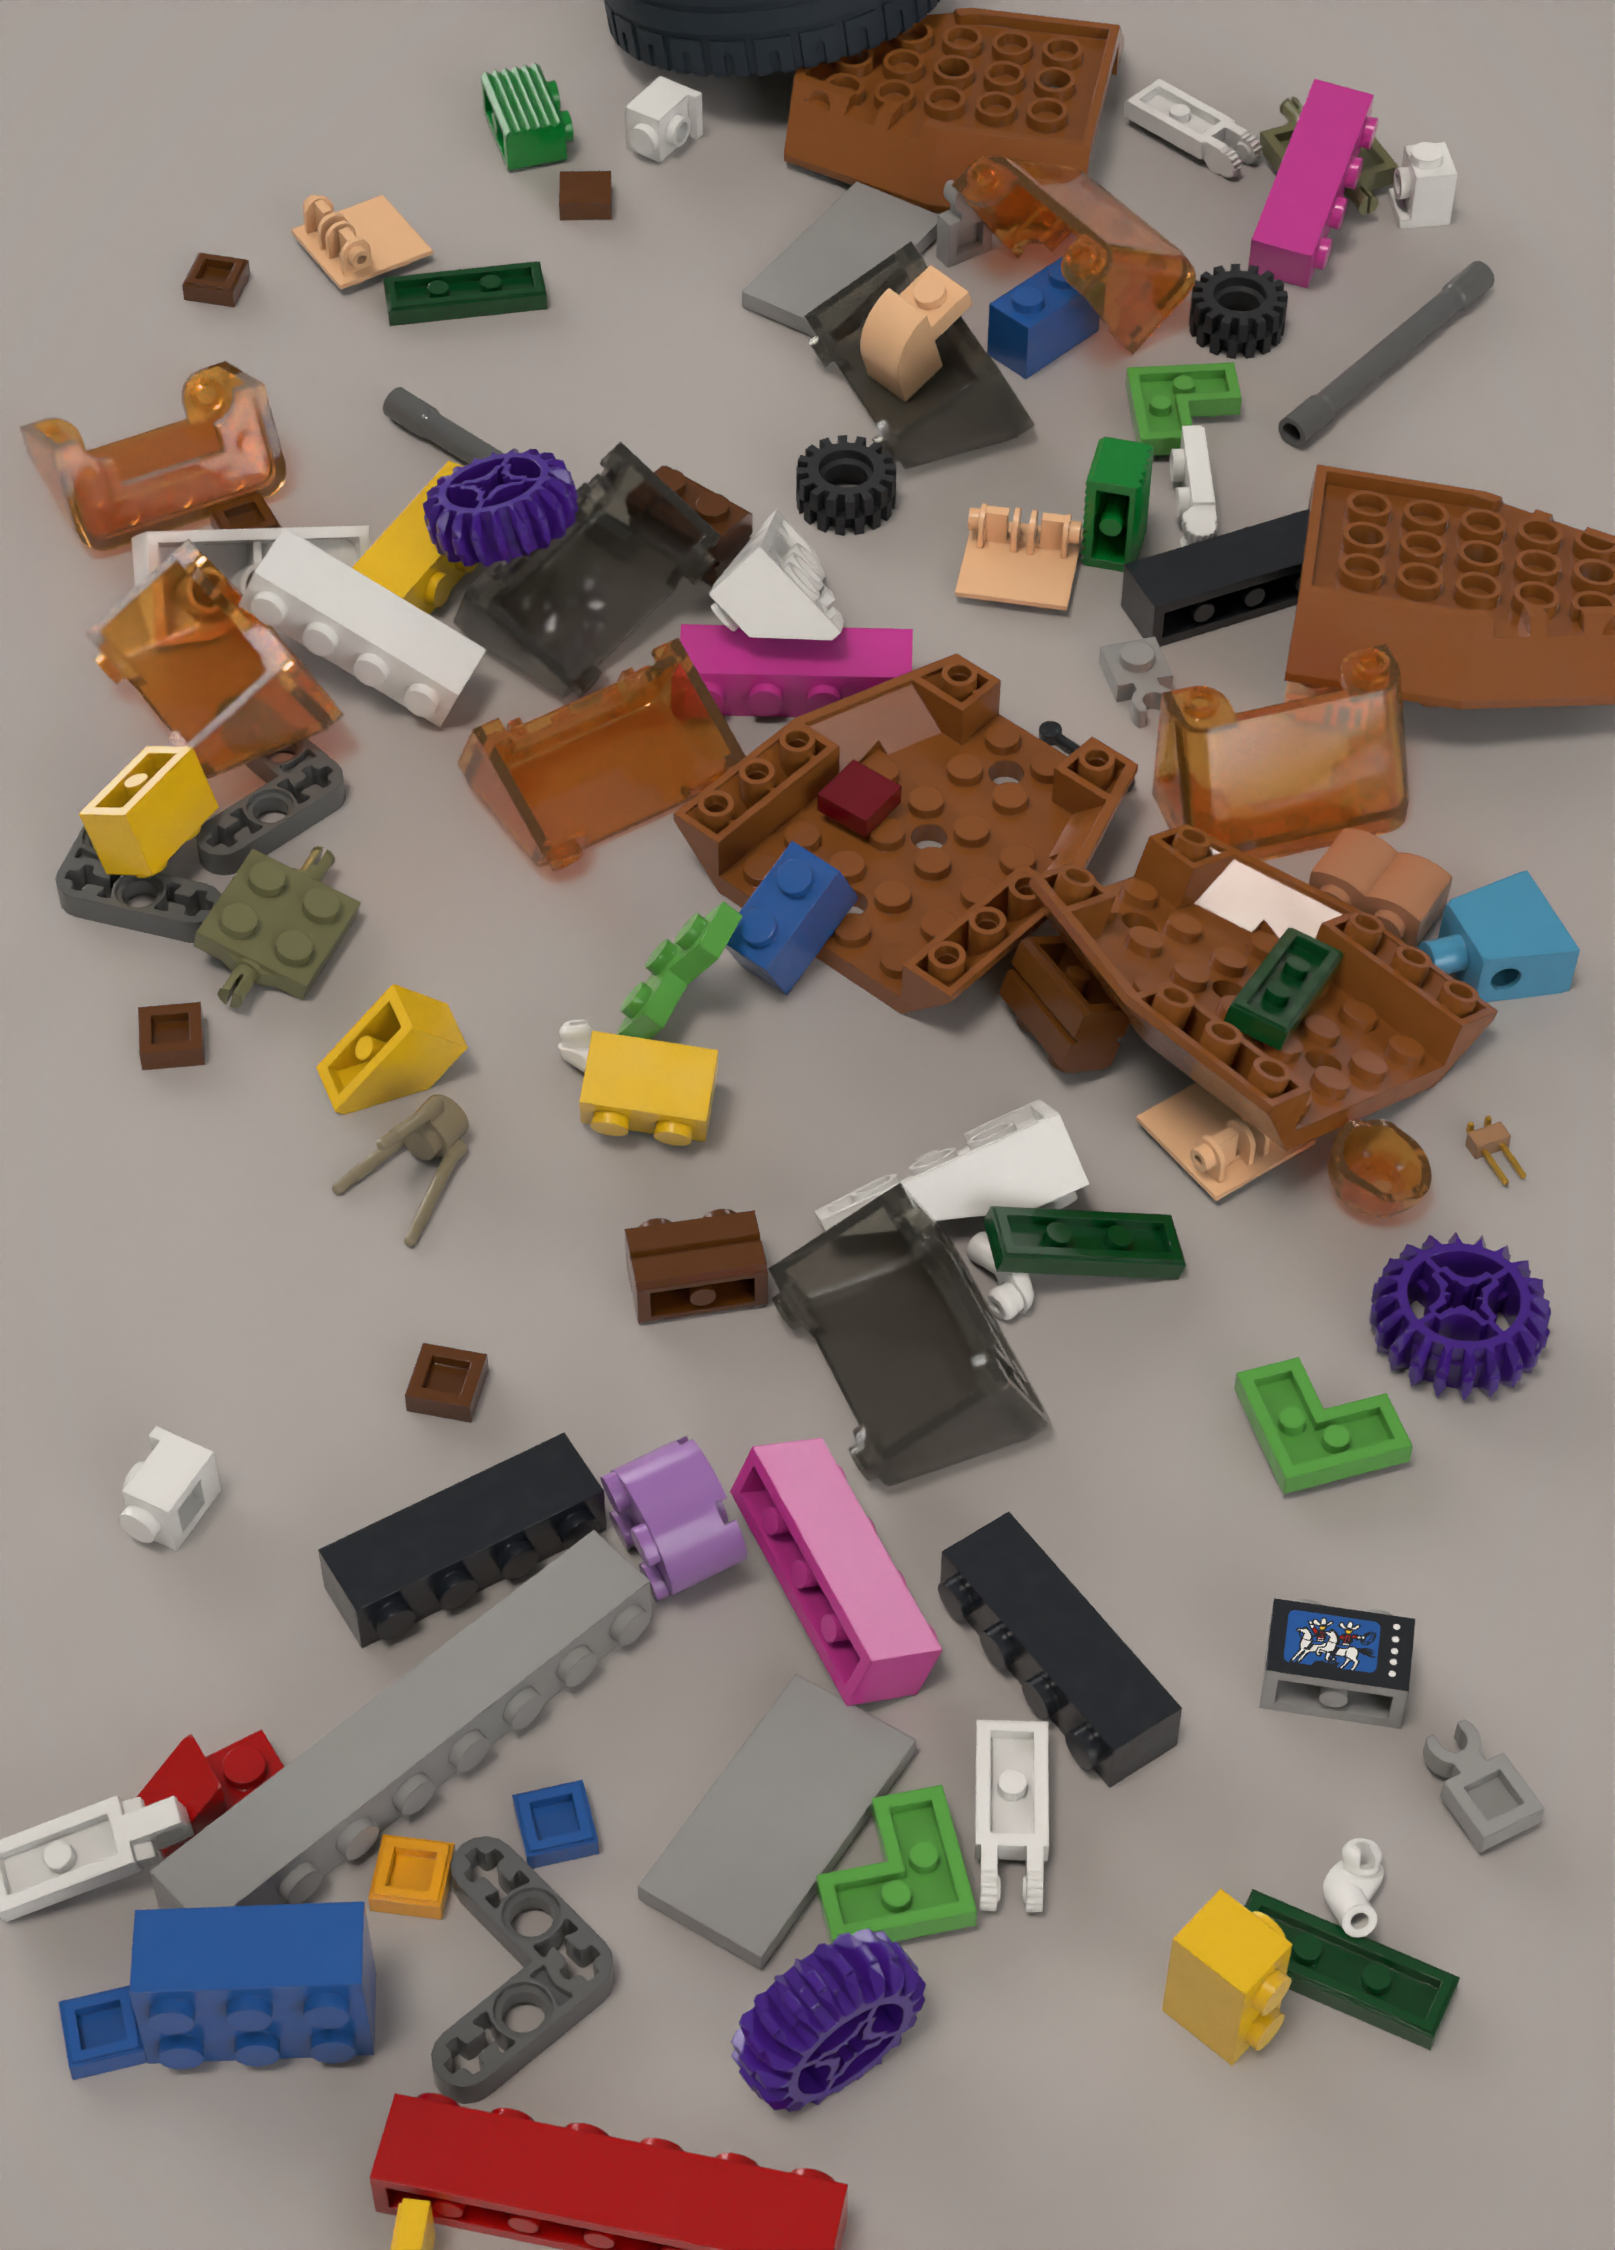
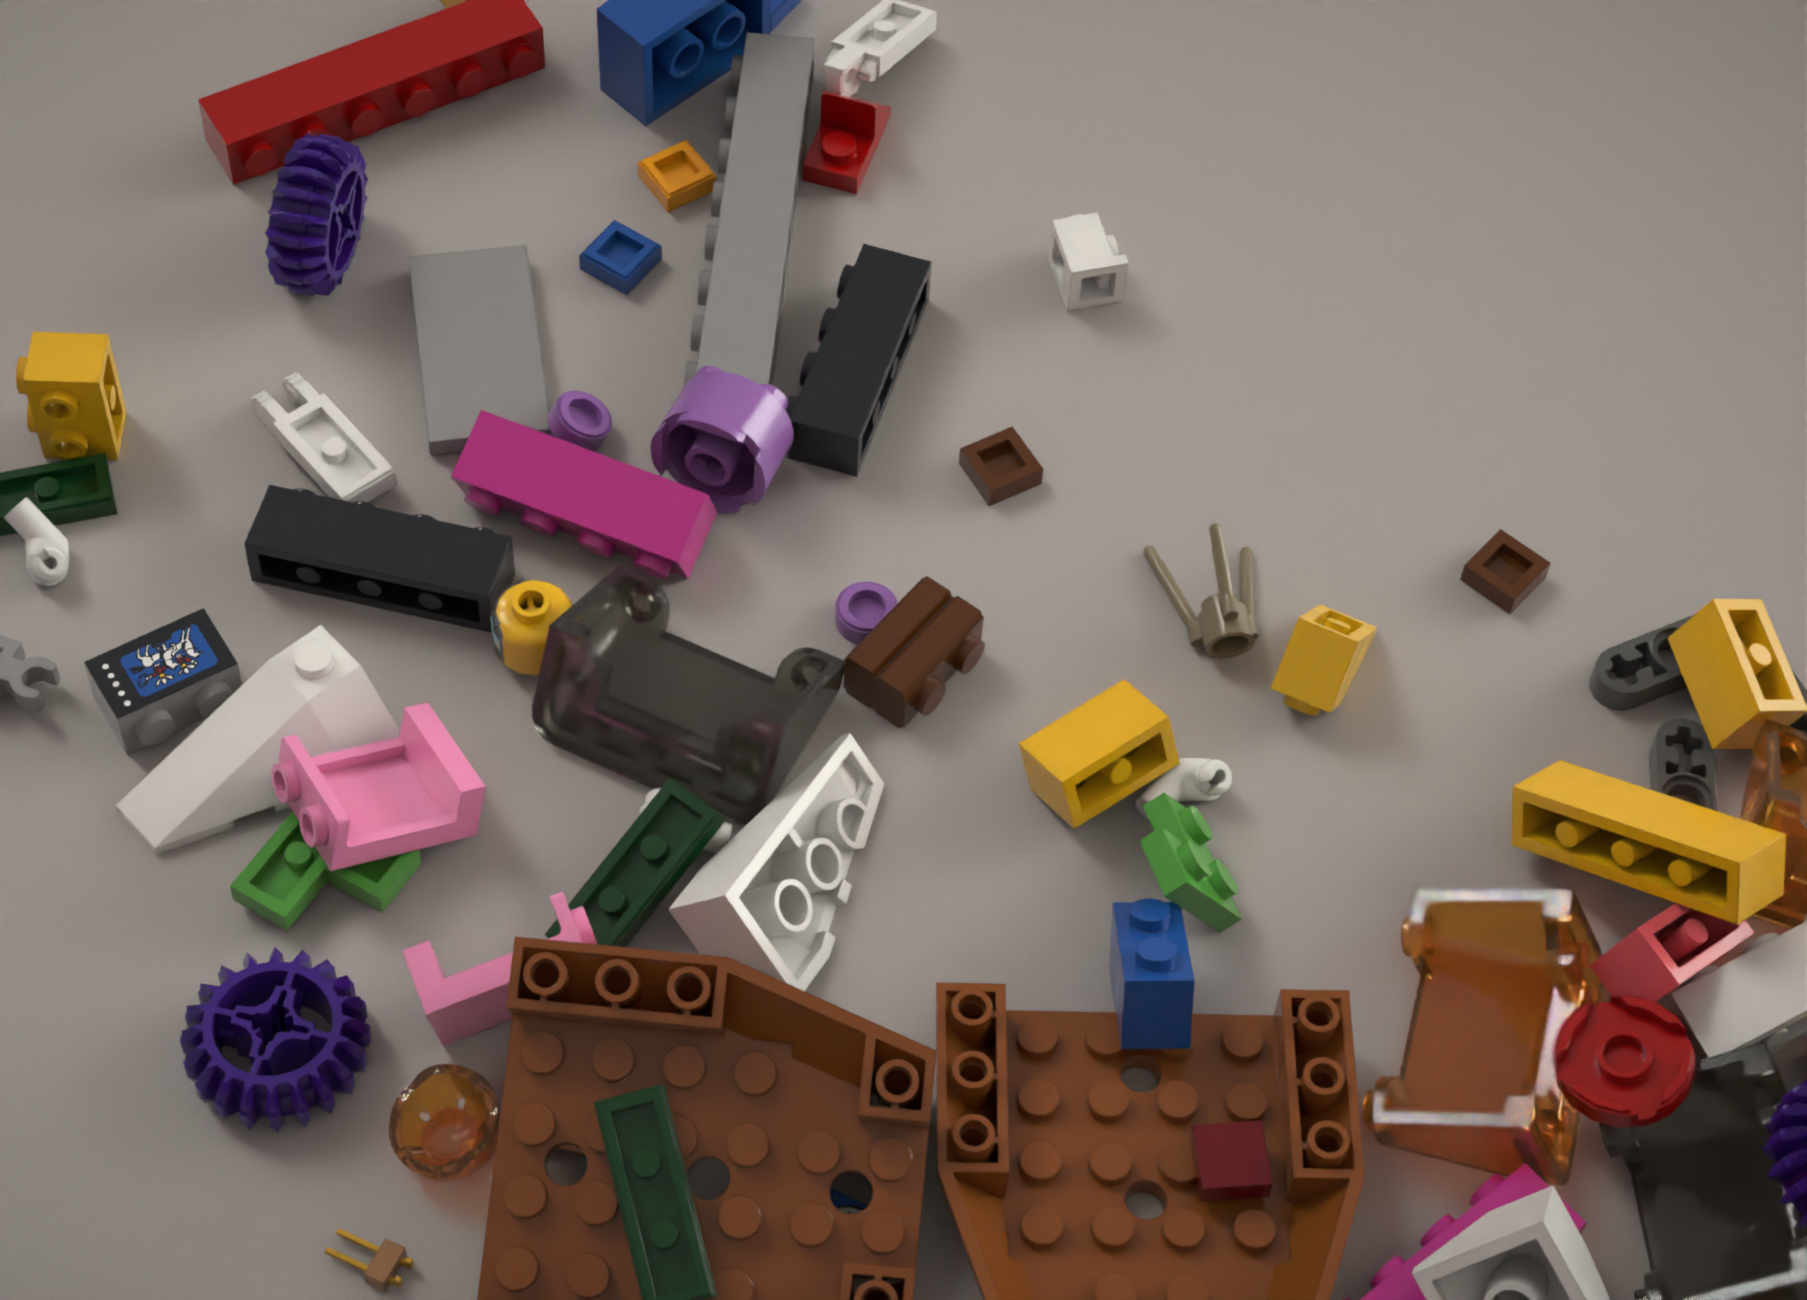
camera: 135 degrees right, 5 degrees up
(276, 925) = (1544, 698): olive plate -> none
(367, 748) = (1649, 841): none -> yellow brick
(423, 710) = (1667, 952): none -> coral brick
(540, 1981) = (536, 171): dark grey beam -> none
(554, 659) = (1624, 1061): none -> red tile
(689, 1342) = (861, 609): none -> medium lavender tile
(762, 1665) = (580, 420): none -> medium lavender tile
(918, 1885) = (349, 357): bright green plate -> none
(986, 1479) = (522, 623): none -> yellow head
(1236, 1424) = (382, 794): none -> bright pink panel
(1245, 1551) = (228, 760): none -> white wedge
(1261, 1195) = (478, 996): none -> bright pink panel

